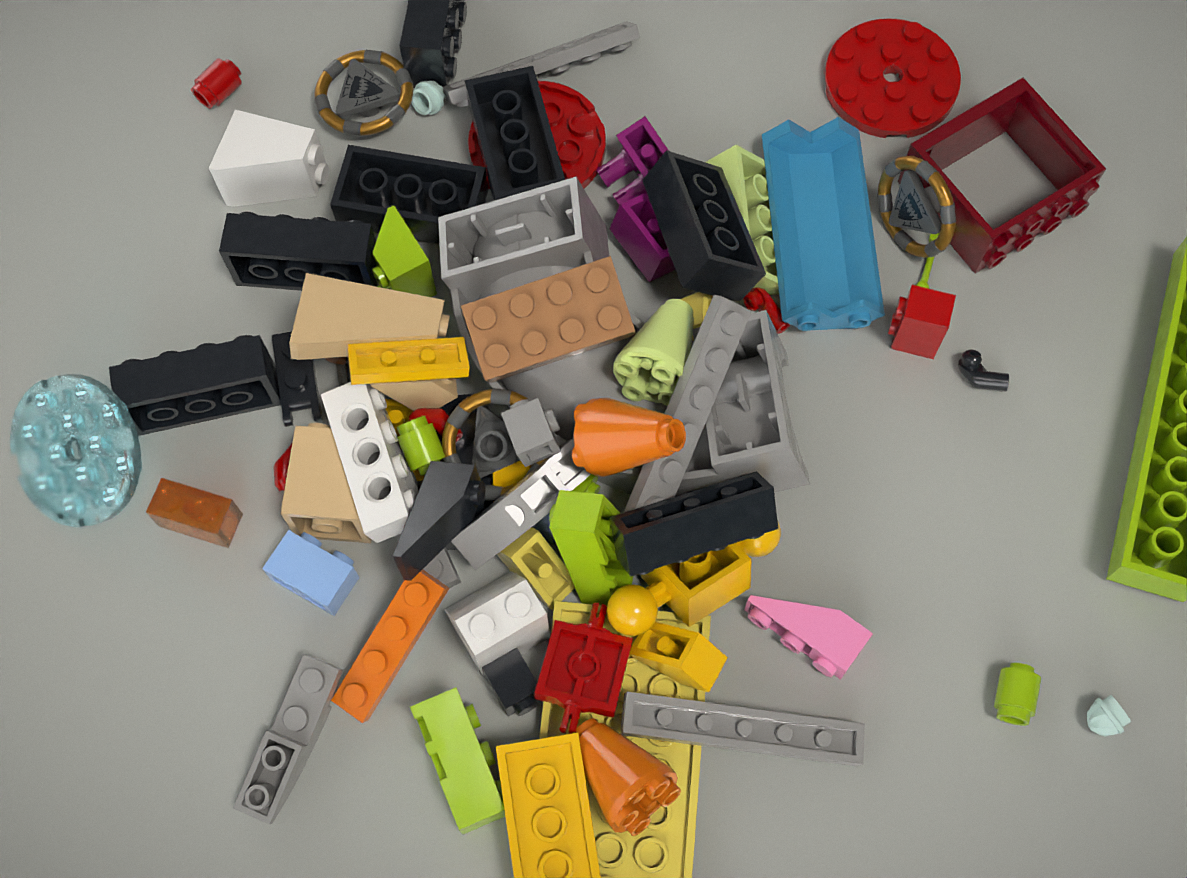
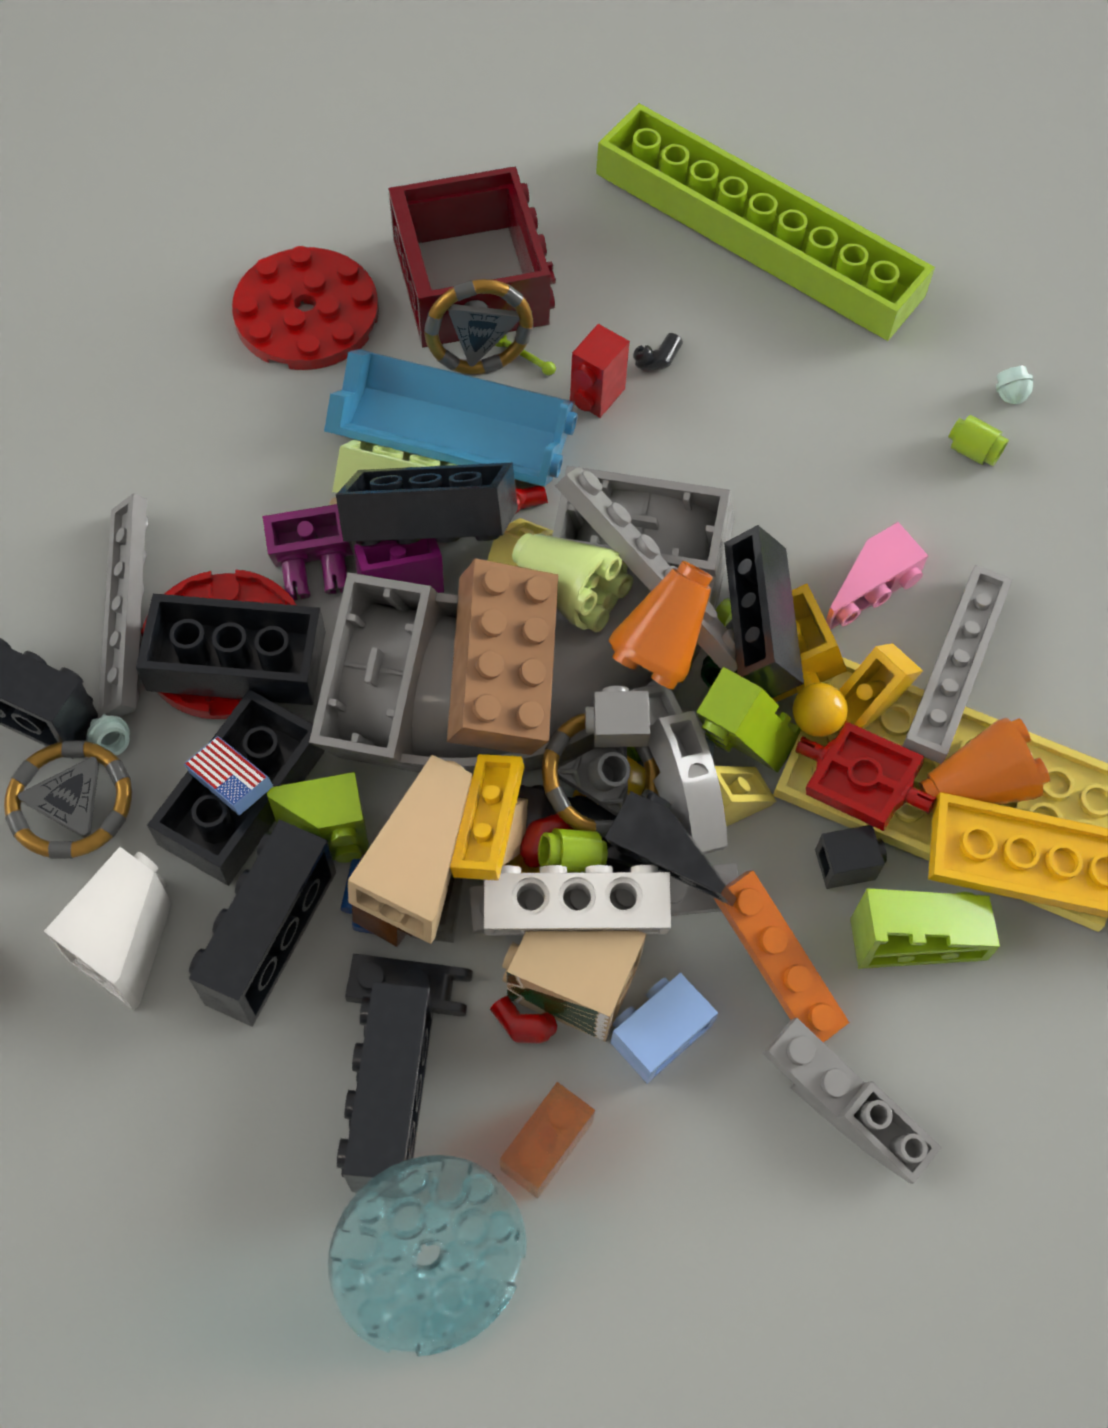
camera: 75 degrees left, 5 degrees down
(397, 176) = (228, 775): none -> tile
(500, 619) = (788, 838): white slope -> none

